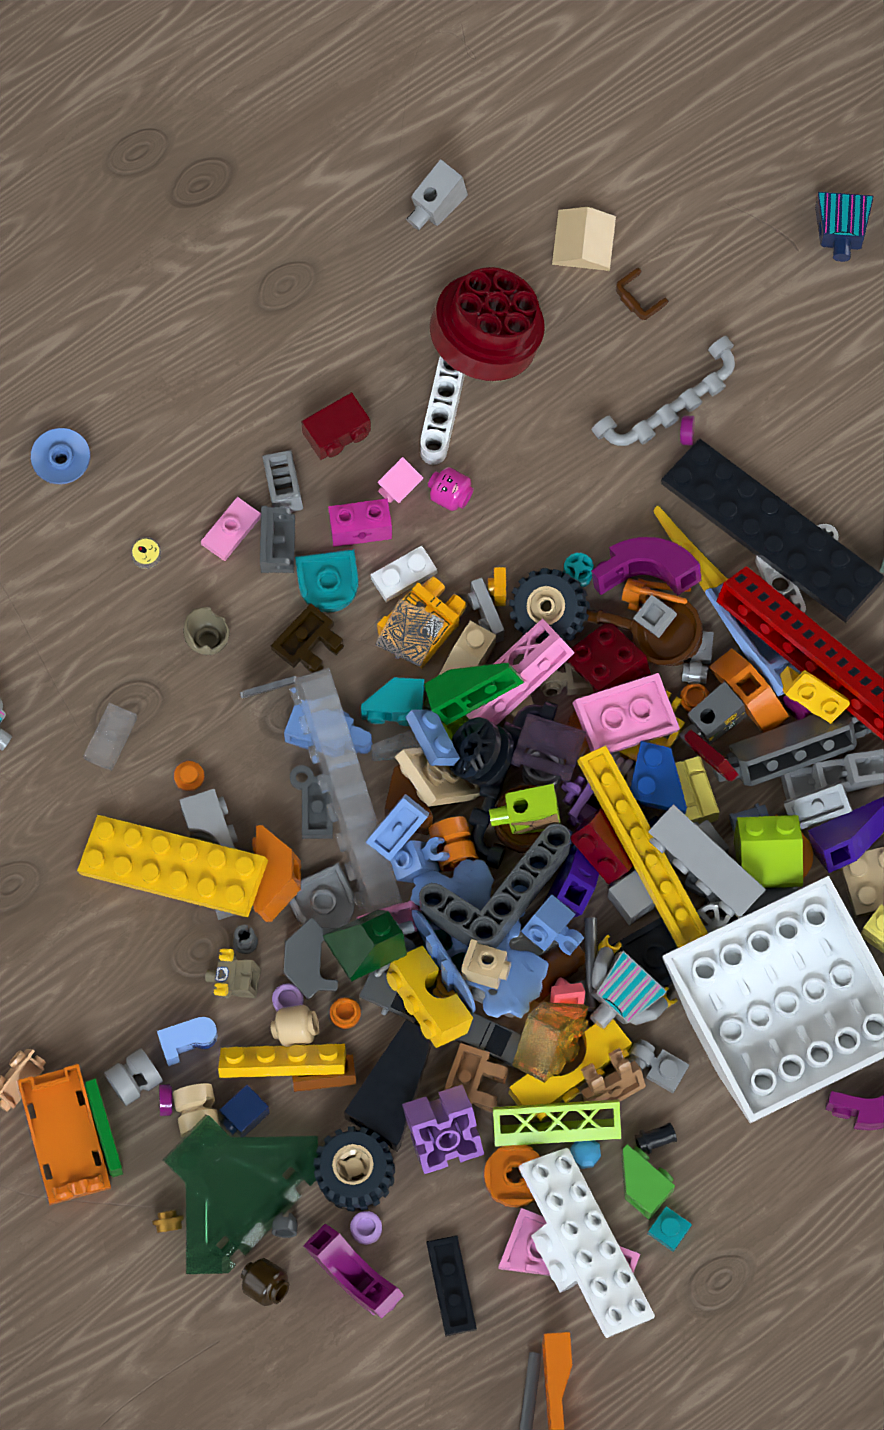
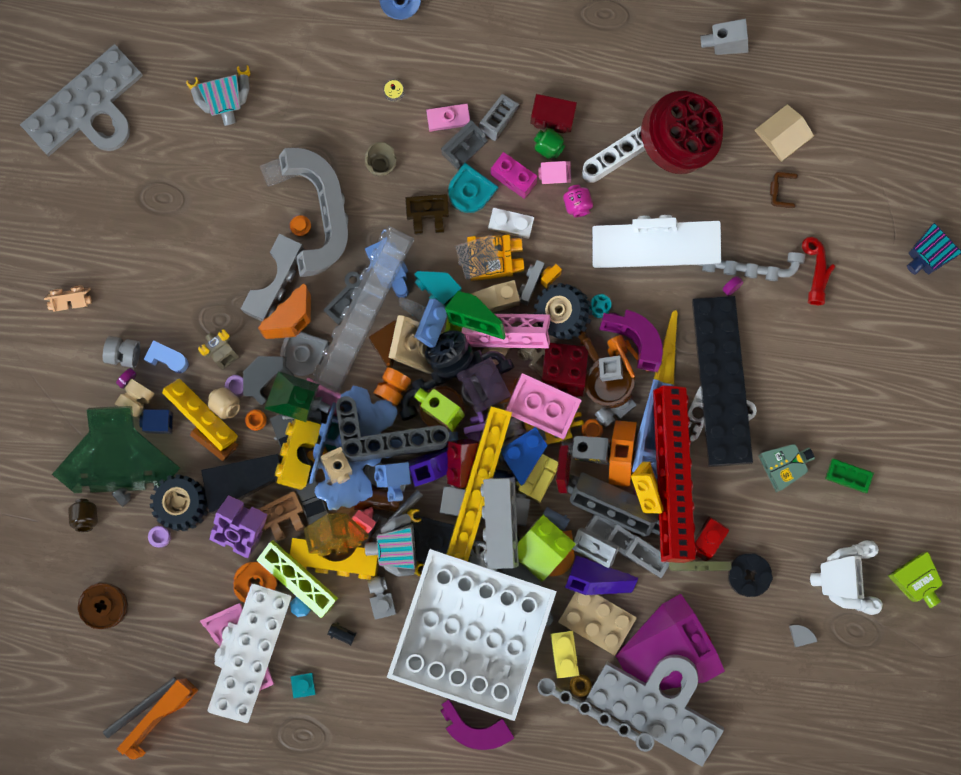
camera: 50 degrees right, 10 degrees up
(64, 1134) = (62, 347): orange piece -> none
(103, 1128) = (83, 363): green tile -> none
(168, 1221) = (68, 439): pearl gold plate -> none
(172, 865) = (243, 264): yellow plate -> none
(203, 725) = (335, 220): none -> light grey arch
(245, 946) = (247, 339): dark grey pin -> none
(267, 687) = (380, 217): flat silver piece -> none
(352, 1272) = (128, 554): magenta arch -> none
(363, 459) = (549, 143): none -> green head
(397, 827) = (364, 353): medium blue plate -> none
(400, 1357) = (89, 606): none -> reddish brown wheel
(417, 858) = (364, 377): medium blue brick -> none
(451, 1286) = (170, 606): black tile -> none
(571, 457) = (657, 243): none -> white bracket
(618, 1085) = (347, 589): medium nougat plate -> none
(643, 1184) = (311, 652): bright green slope -> none
(777, 364) = (821, 275): none -> red plant

